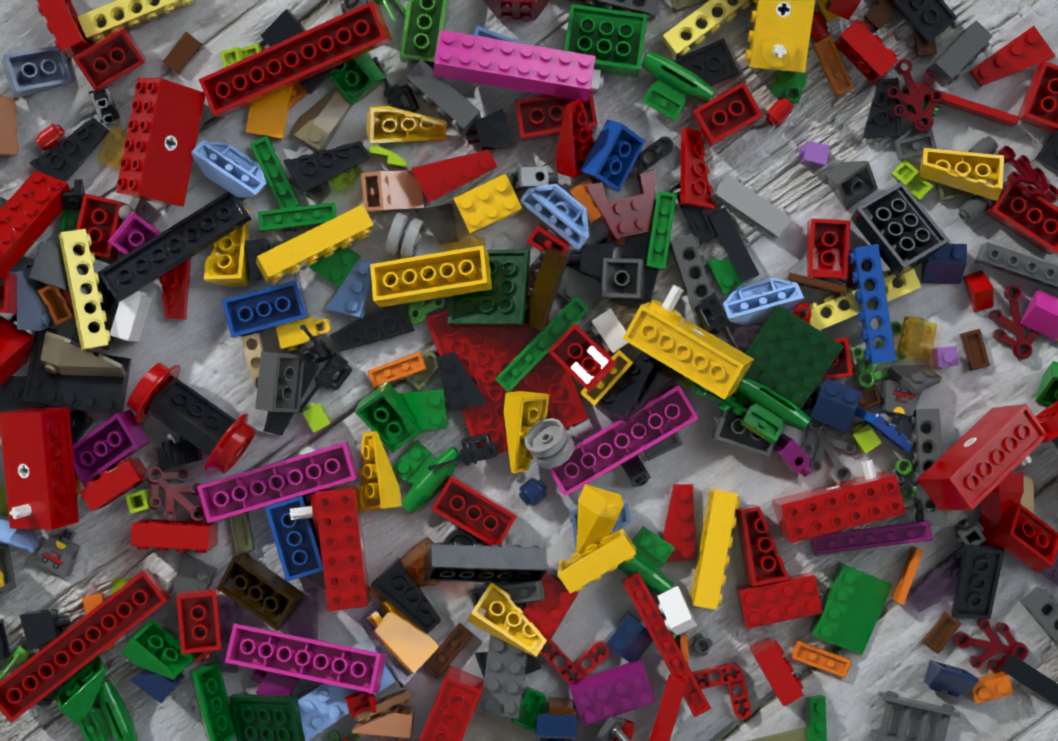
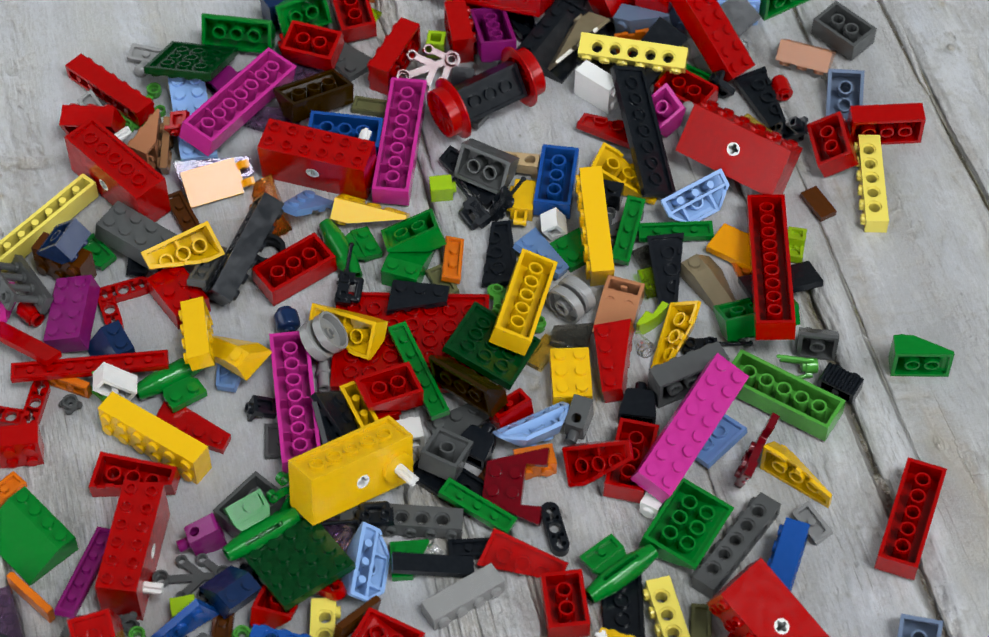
camera: 110 degrees right, 35 degrees down
(317, 291) = (553, 224): none -> white brick
(394, 536) = (305, 203): none -> medium blue wing
(404, 593) = (245, 194): black wing -> none
(613, 155) = (568, 488): blue brick -> none
(779, 600) = (68, 483): red brick -> none

